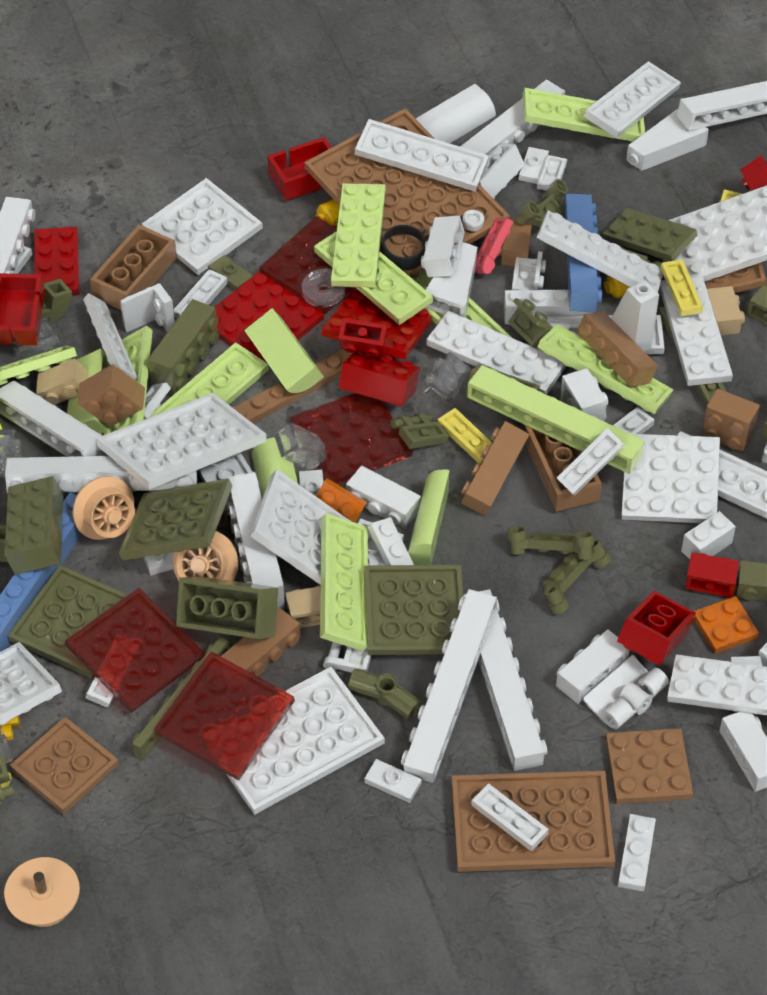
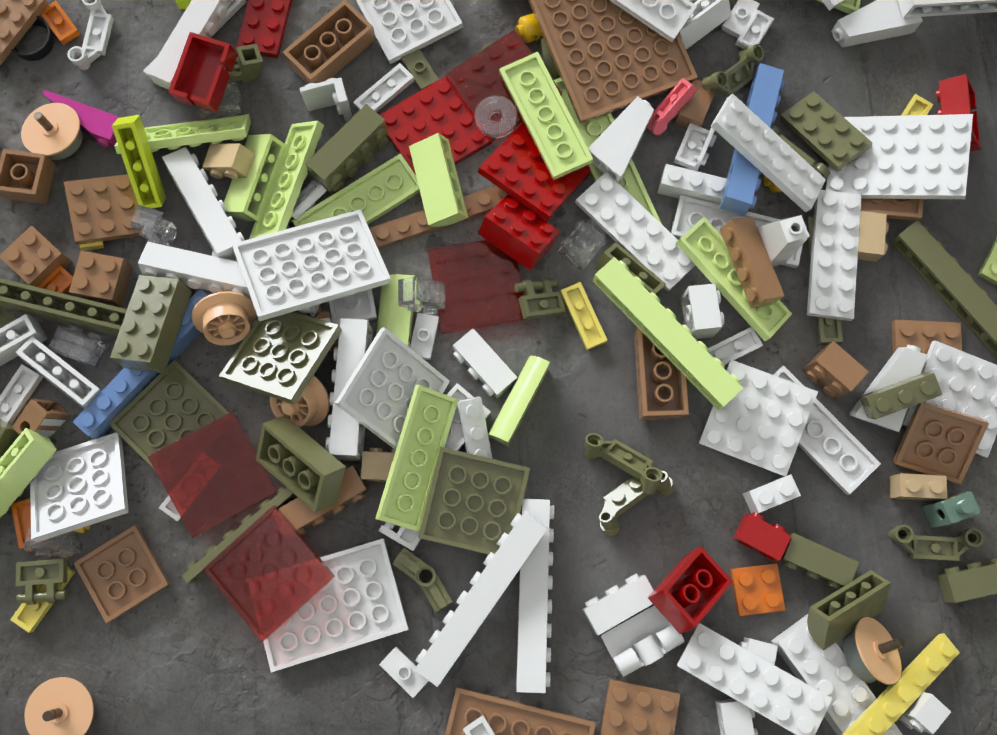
camera: 15 degrees right, 25 degrees up
(108, 334) = (283, 123): white plate -> none
(111, 395) = (260, 196): medium nougat brick -> none
(341, 500) = (443, 360): orange plate -> none
(358, 235) = (543, 69): yellowish green plate -> none
(363, 337) = (512, 193): red brick -> none
(403, 263) = (579, 110): black tyre -> none
(443, 246) = (620, 103): white brick -> none
(473, 220) = (660, 75): white tile -> none
(494, 469) = (595, 363): medium nougat brick -> none
(529, 323) = (678, 209): olive bracket -> none
(590, 461) = (684, 398): white plate -> none
(681, 287) = (836, 208): light yellow plate -> none

